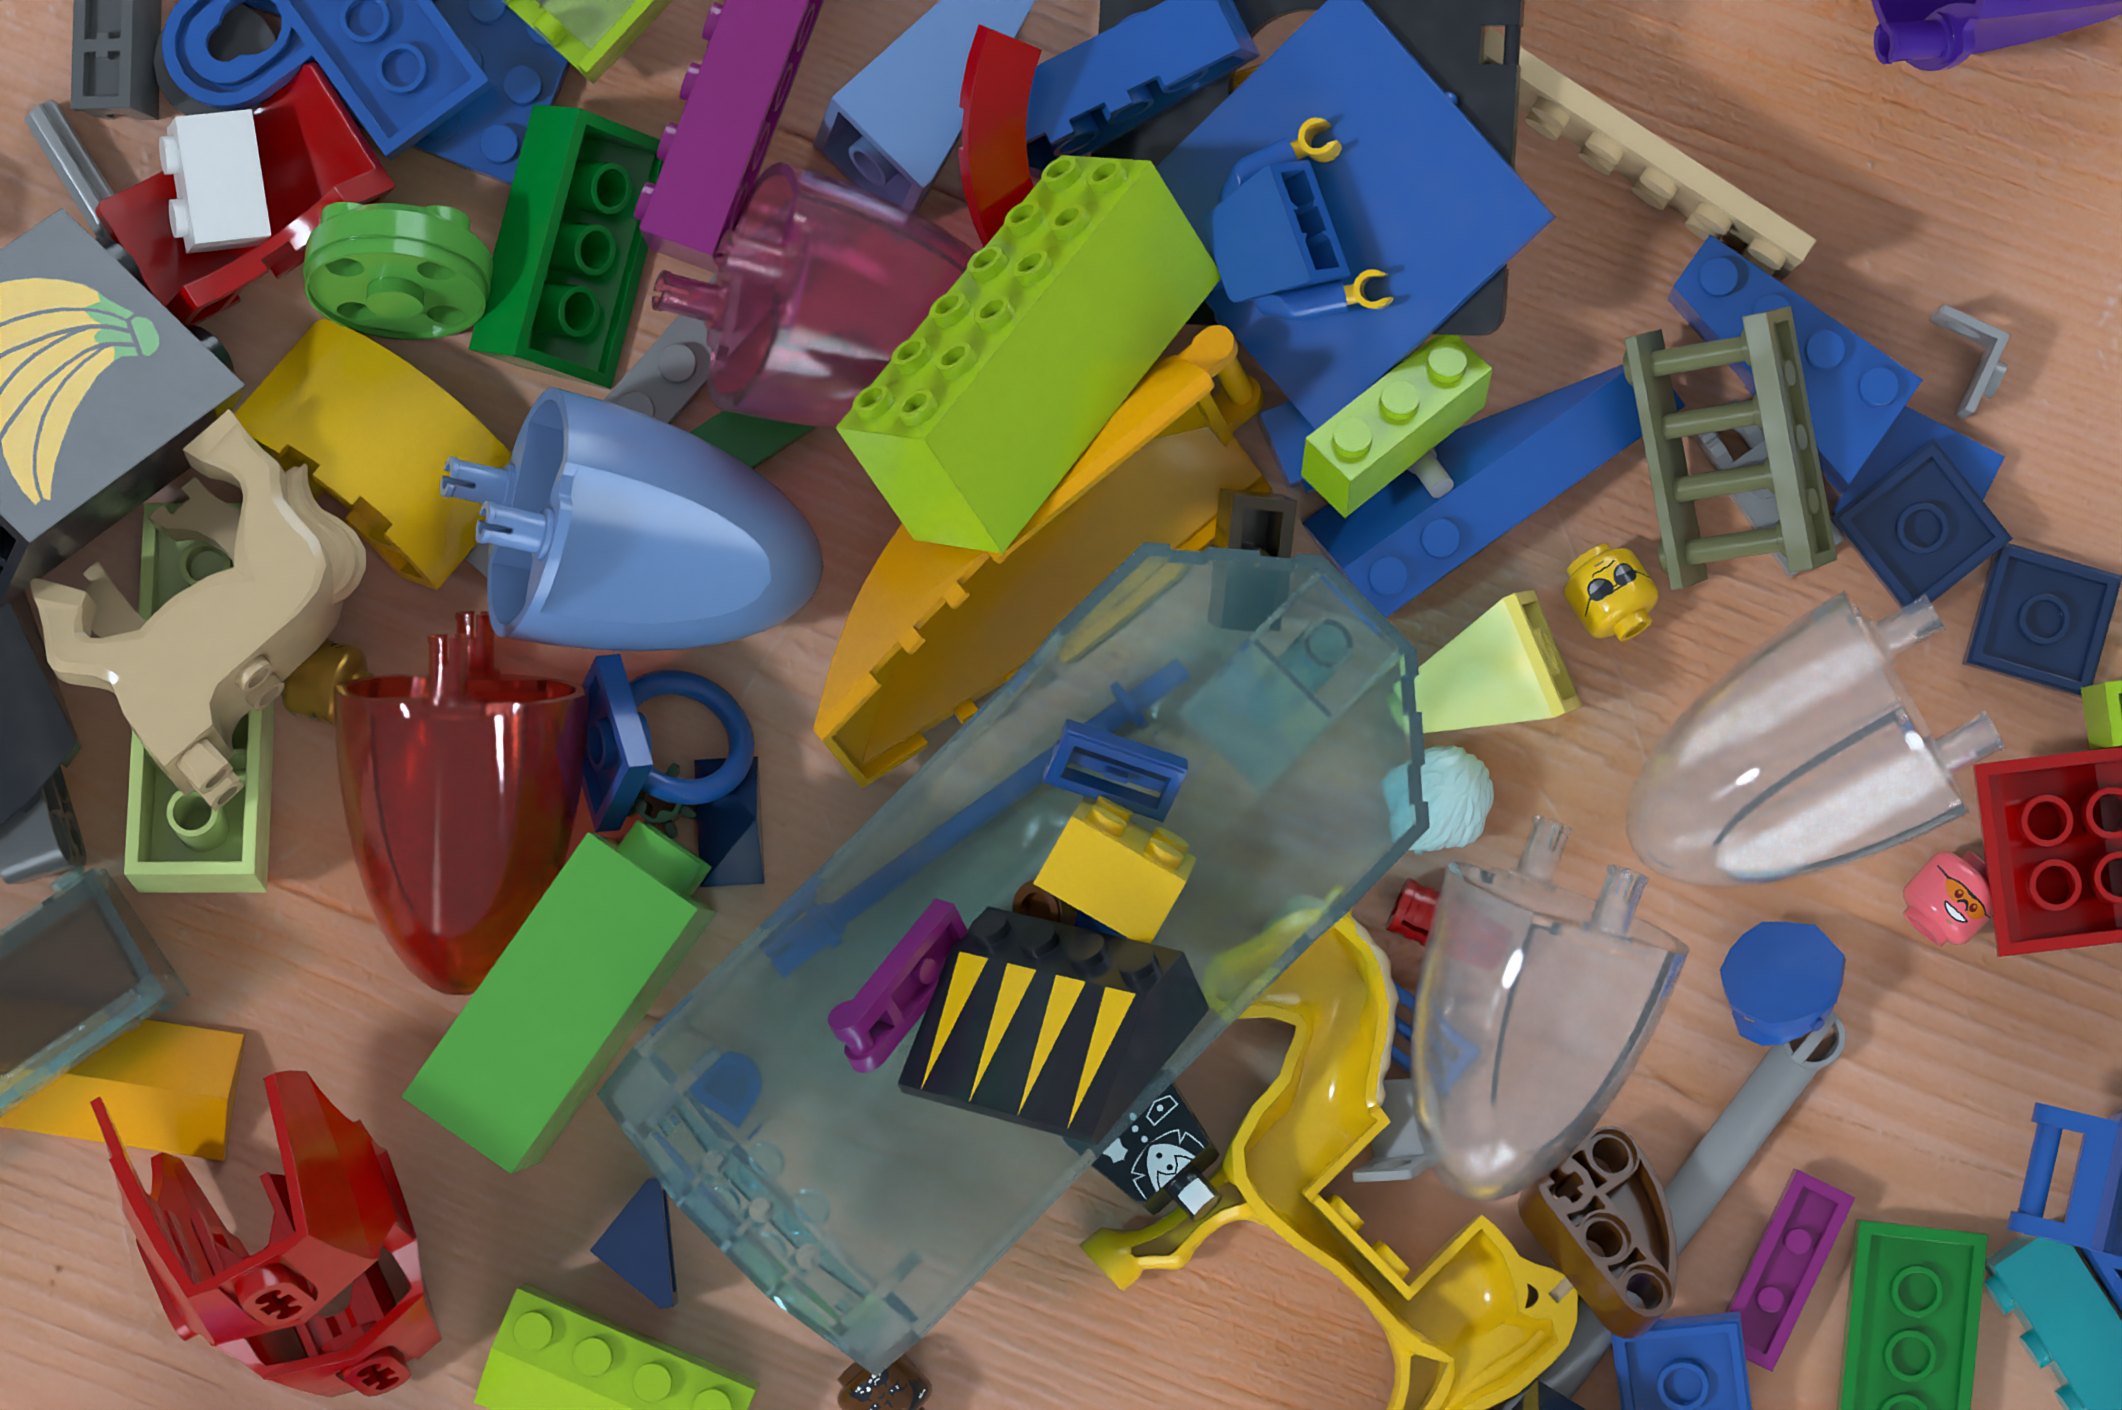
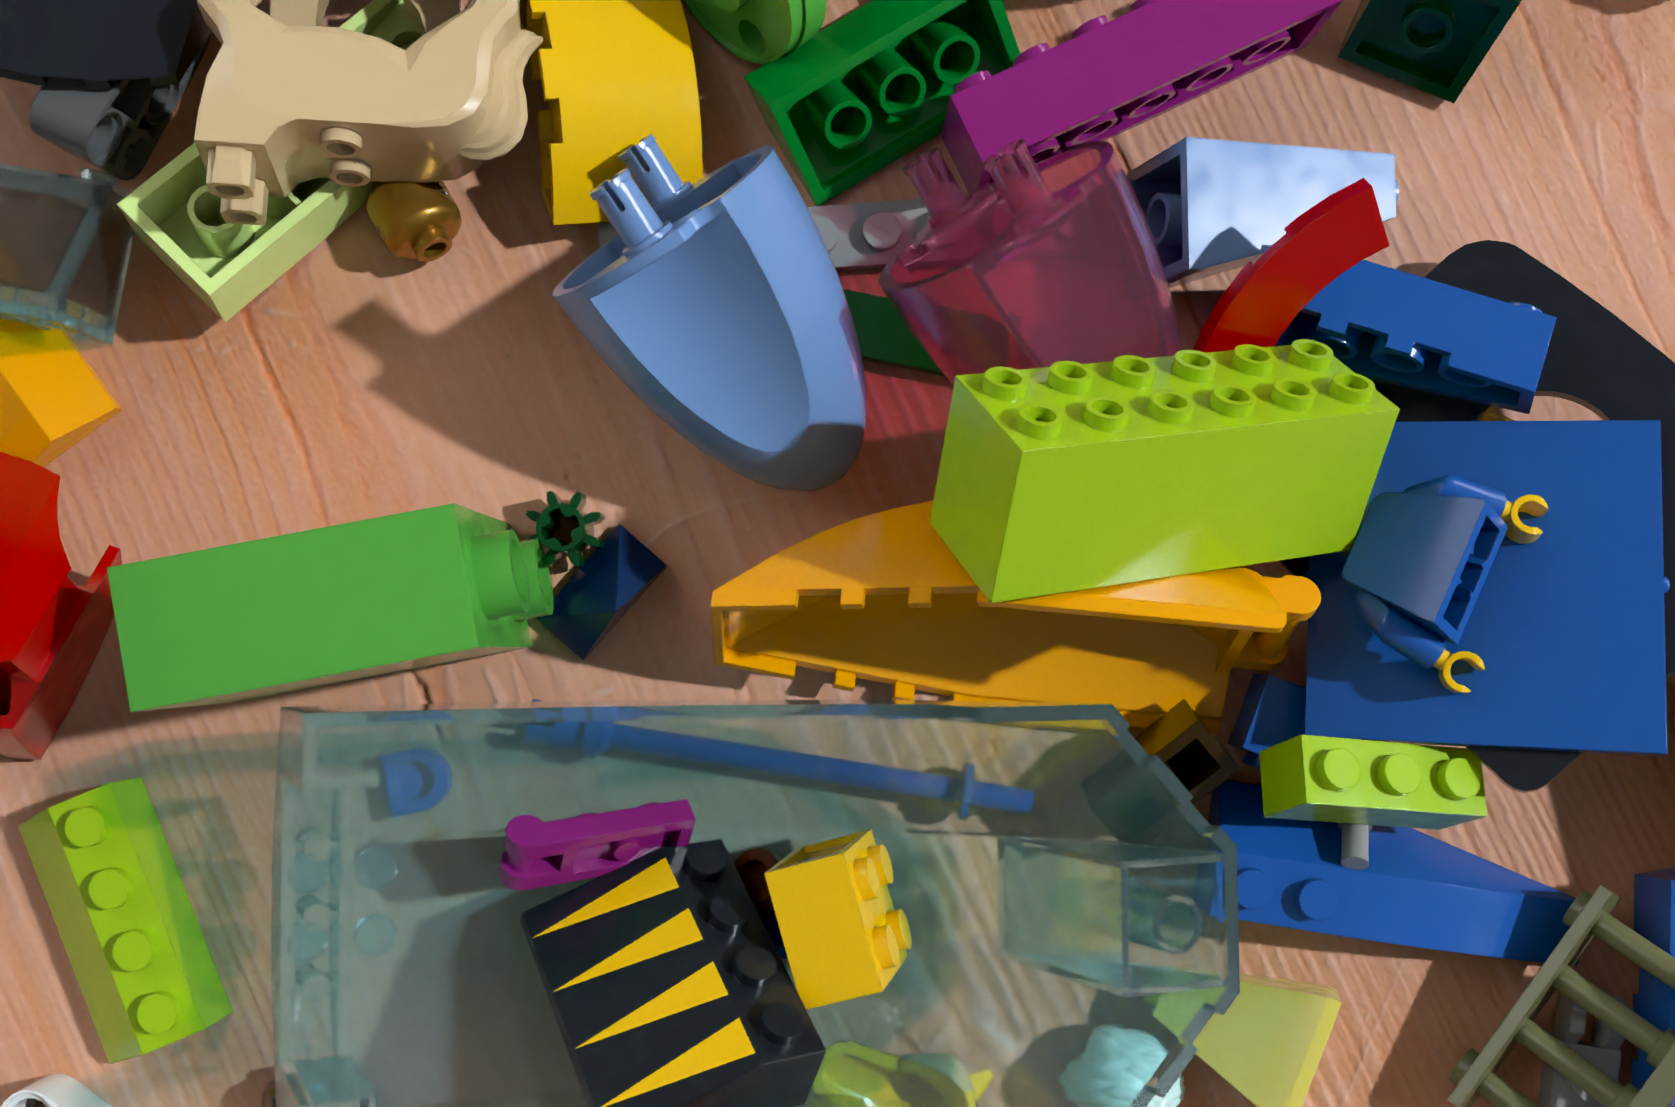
camera: 45 degrees right, 0 degrees up
(458, 800) = (412, 382): clear red windscreen -> none
(621, 746) = (570, 457): blue tile -> none
(641, 1245) = (230, 842): dark blue slope -> none
(1119, 761) = (920, 835): blue tile -> none
(1610, 592) = (1397, 1053): yellow head -> none

